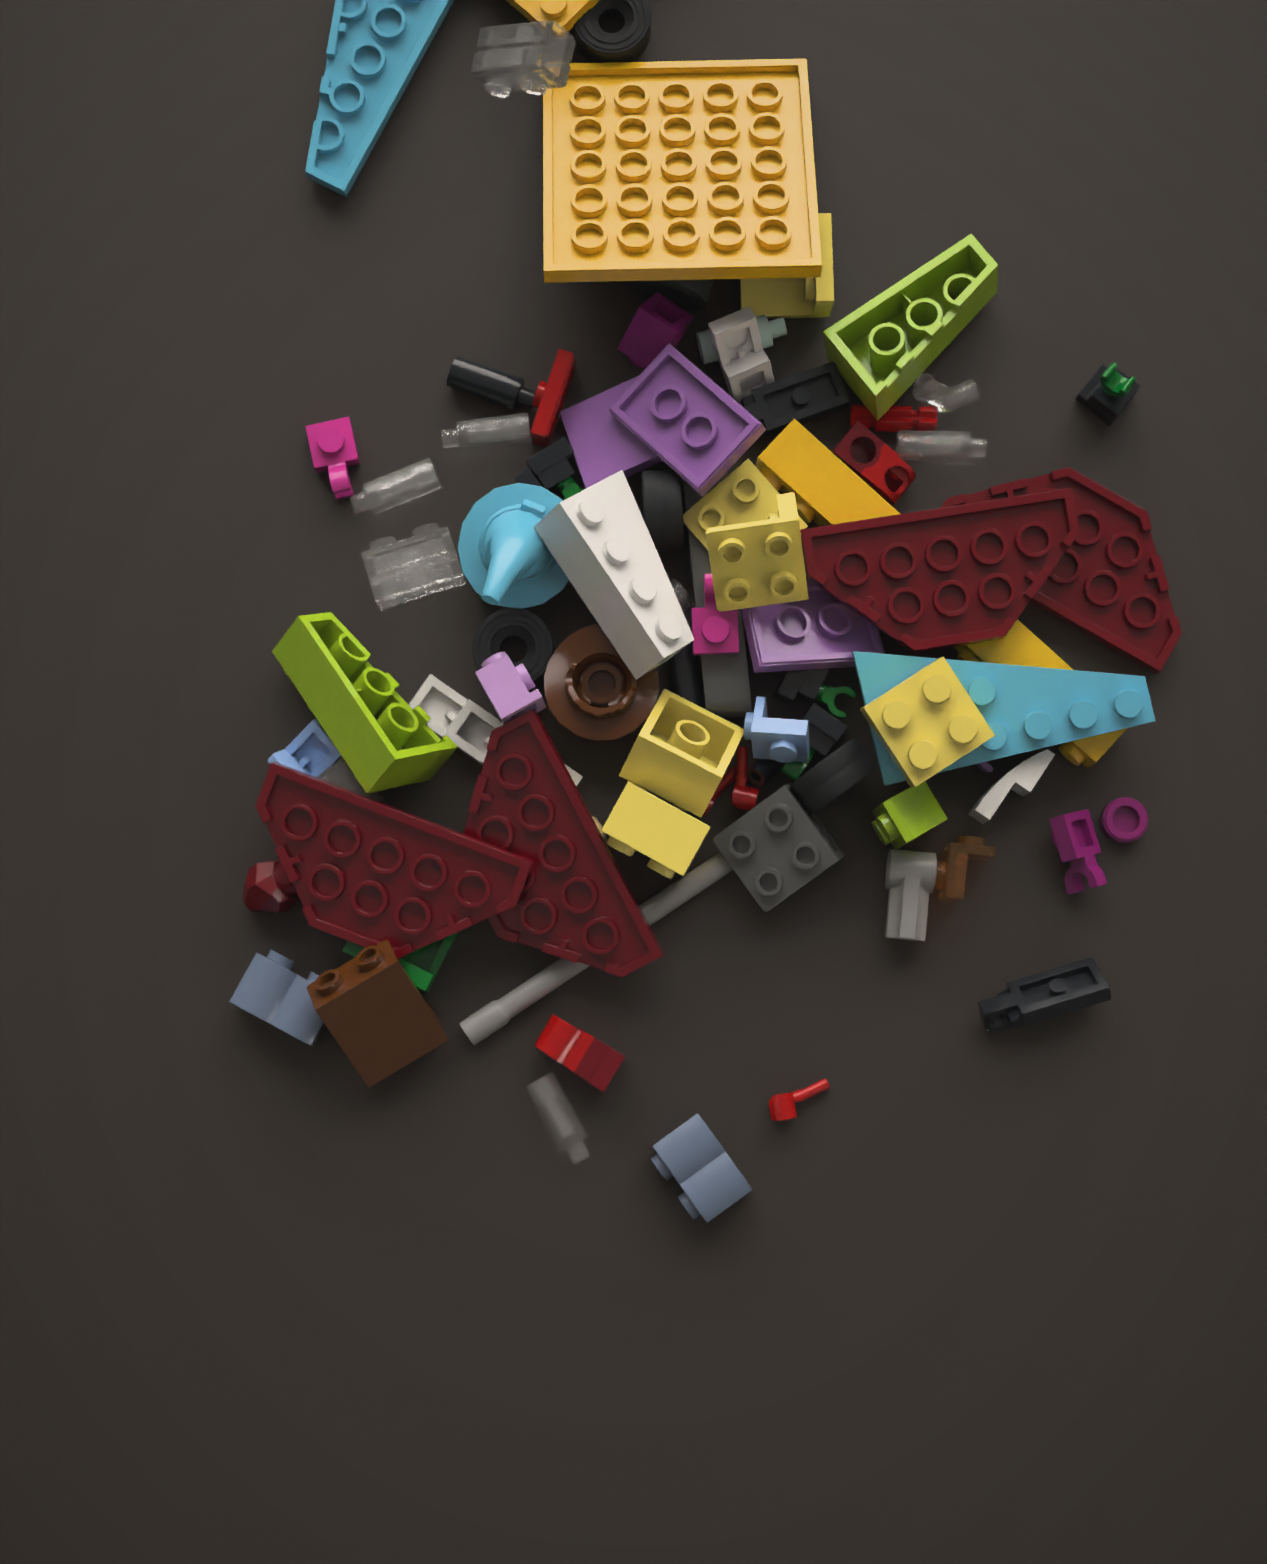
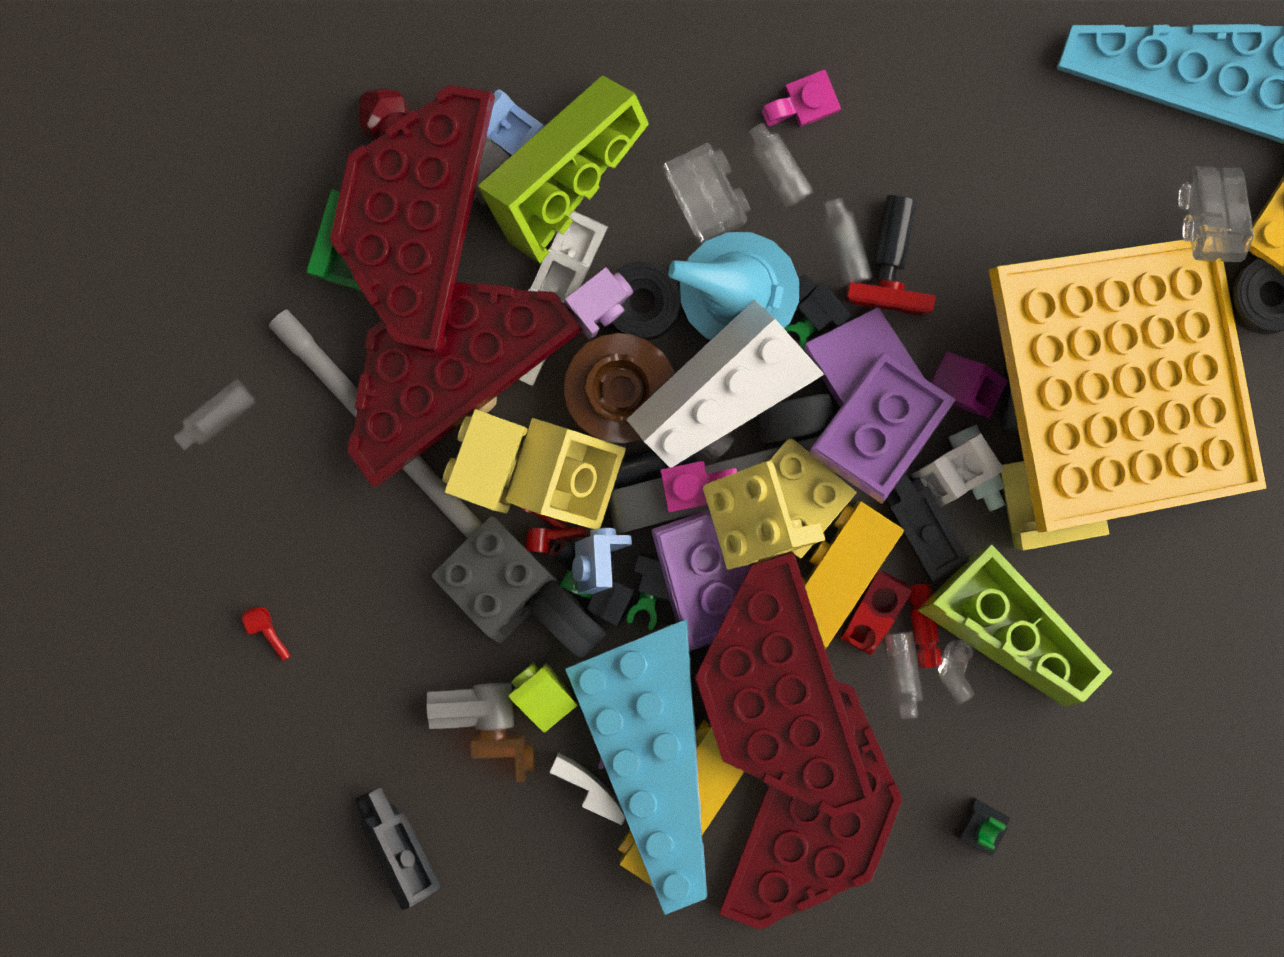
camera: 80 degrees right, 5 degrees up
(279, 996) = (283, 145): sand blue brick -> none
(376, 1013) = (277, 230): reddish brown panel -> none
(579, 1052) = (276, 425): leg -> none
(701, 1168) = (187, 553): sand blue brick -> none
(927, 722) = (624, 697): light yellow brick -> none
(1077, 843) = (541, 858): magenta plate -> none
(1124, 820) = (575, 899): magenta tile -> none

